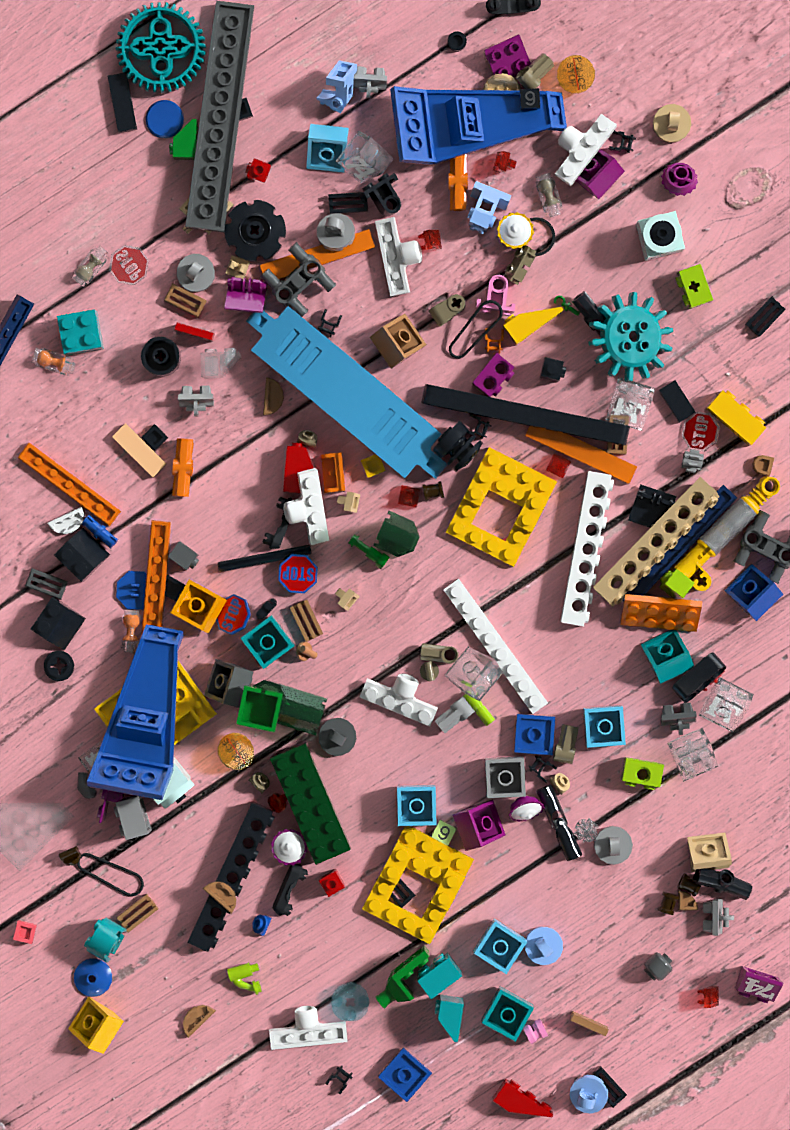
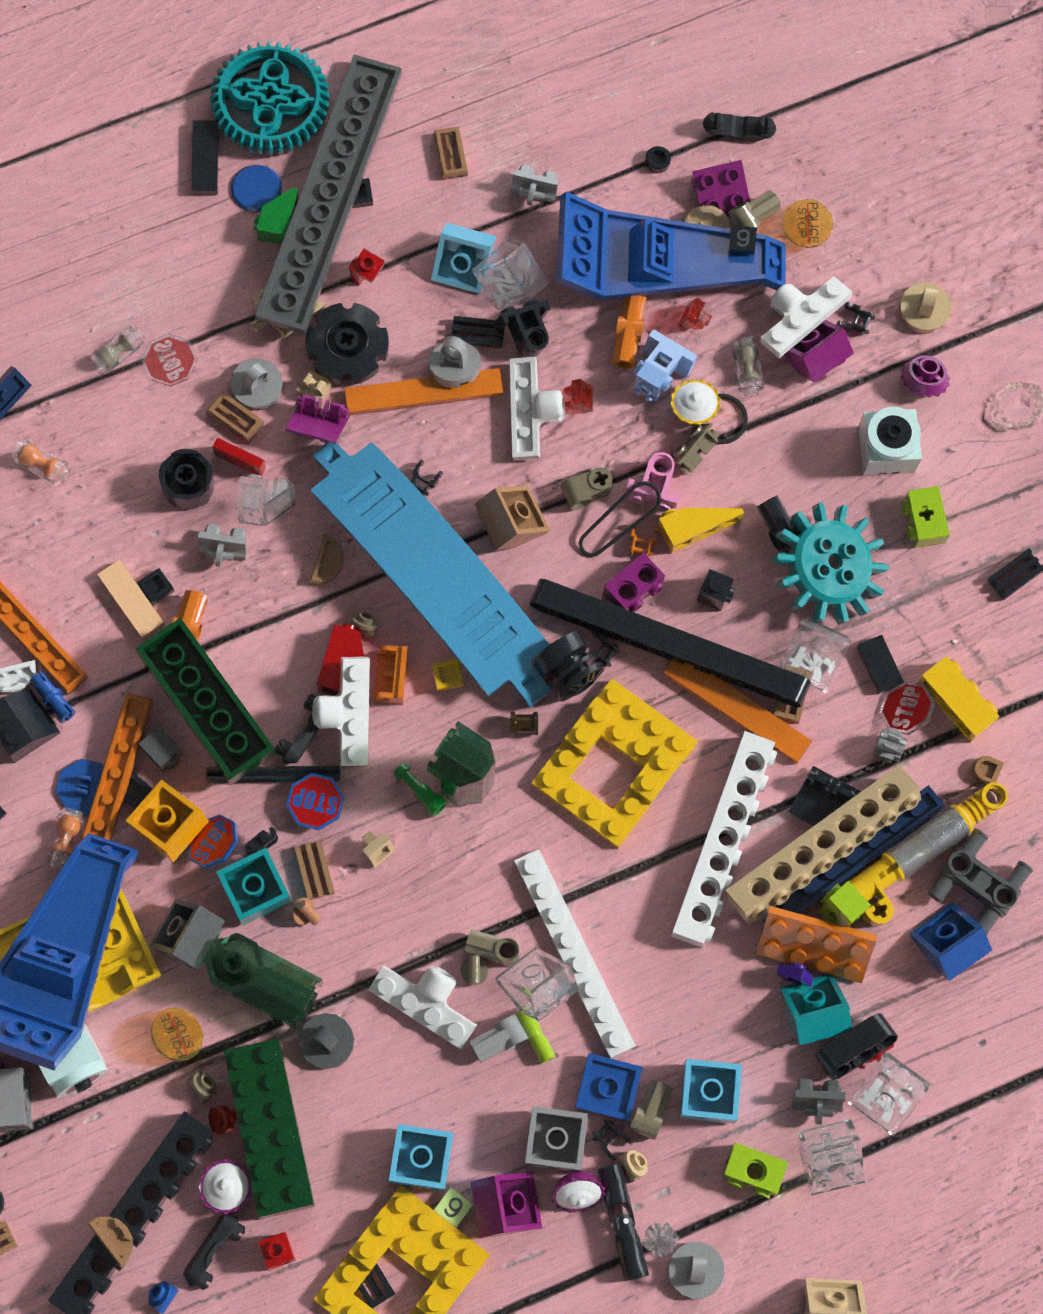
camera: 10 degrees right, 15 degrees down
(80, 332) = (84, 430): teal brick -> none
(208, 520) = (205, 701): none -> dark green brick
(259, 708) = (221, 969): green piece -> none
(298, 280) = (392, 412): dark grey piece -> none
(308, 80) = (454, 172): none -> medium nougat tile
(342, 78) = (500, 171): light blue tile -> none
(350, 501) = (406, 717): tan tile -> none
(409, 496) = (490, 725): clear red tile -> none
(558, 465) = (703, 721): clear red tile -> none
(567, 306) = (749, 514): green hand -> none
(650, 634) = (795, 974): none -> dark purple plate

